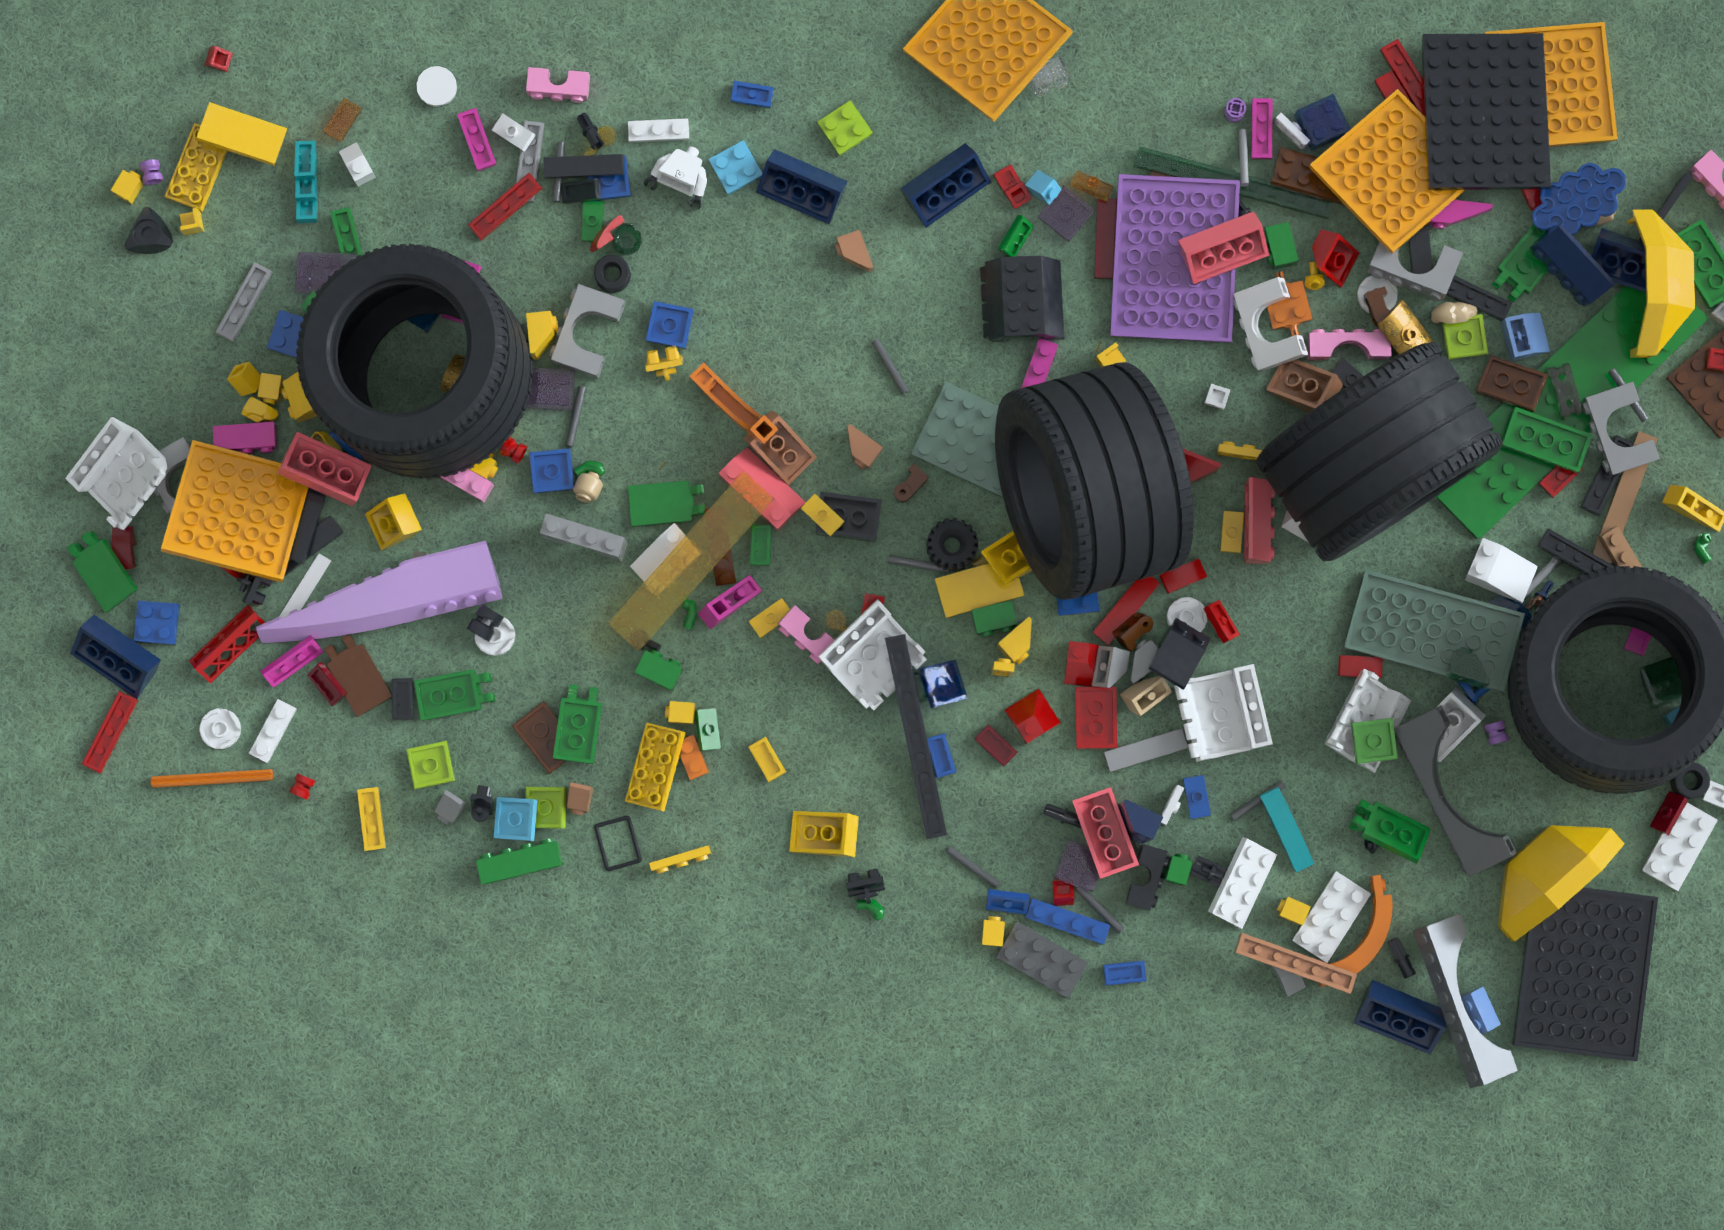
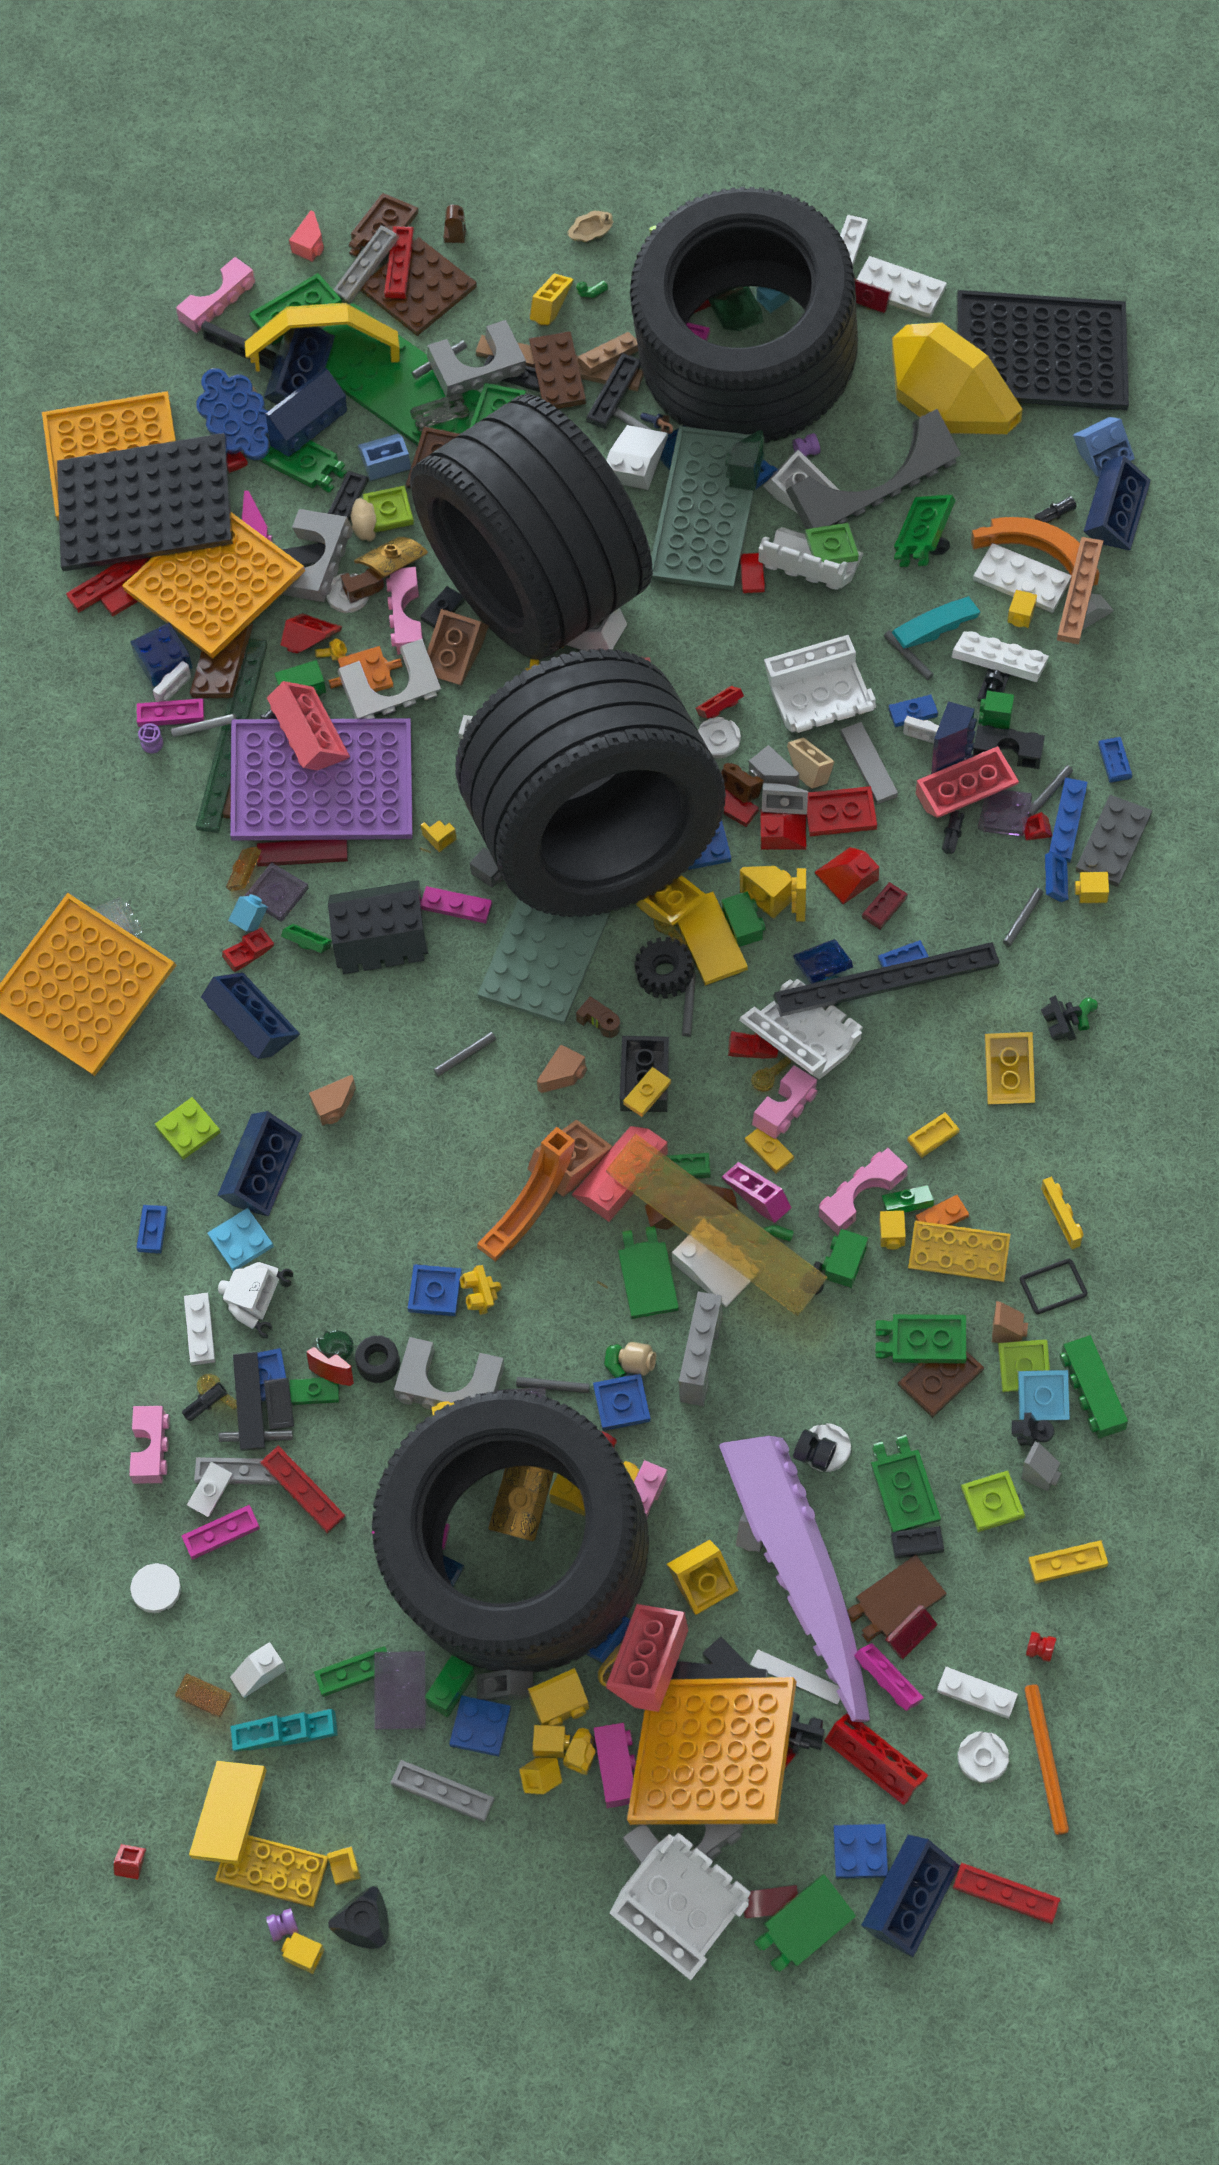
camera: 90 degrees left, 20 degrees down
(704, 671) = (884, 1172): none -> bright pink arch
(1179, 653) = (760, 729): black slope -> none
(1478, 1056) = (1036, 470): arch -> none
(1606, 505) = (557, 370): none -> reddish brown plate

